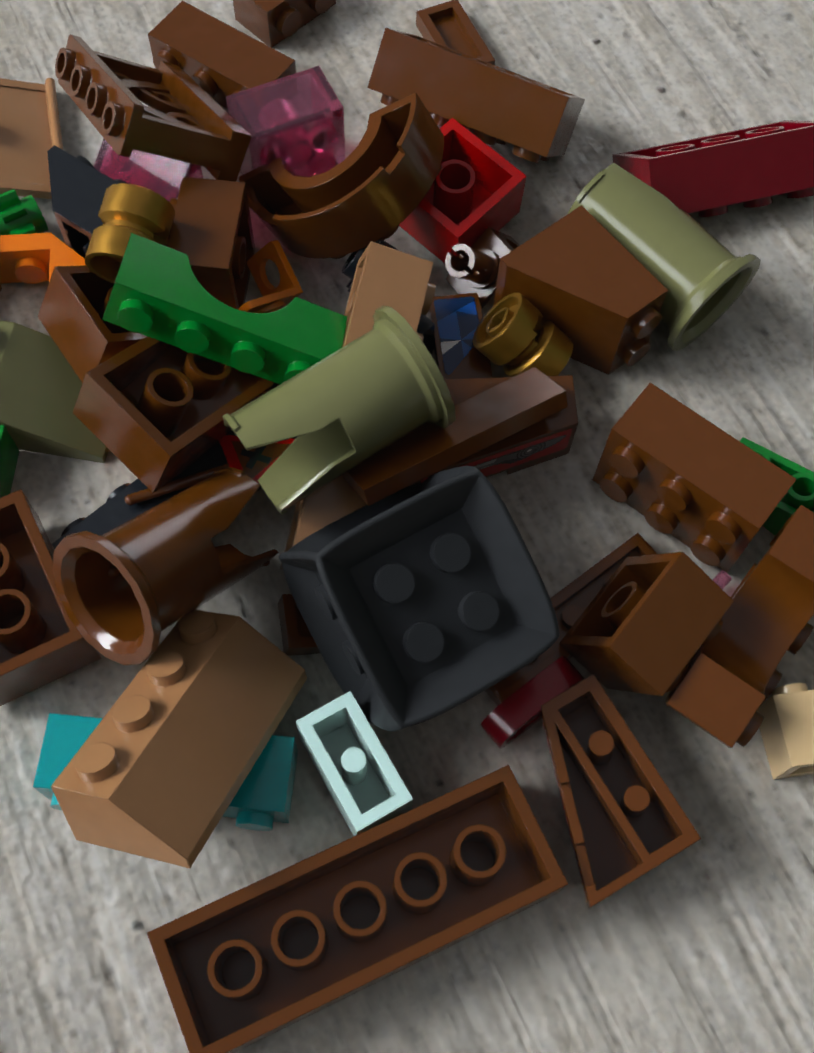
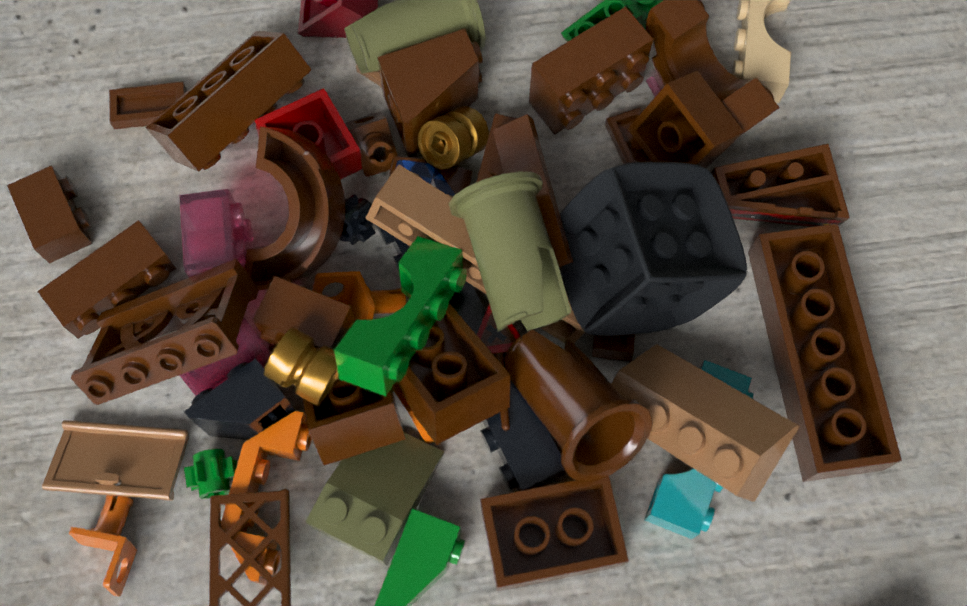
camera: 70 degrees left, 5 degrees up
(353, 764) = (730, 329): light aqua brick -> none

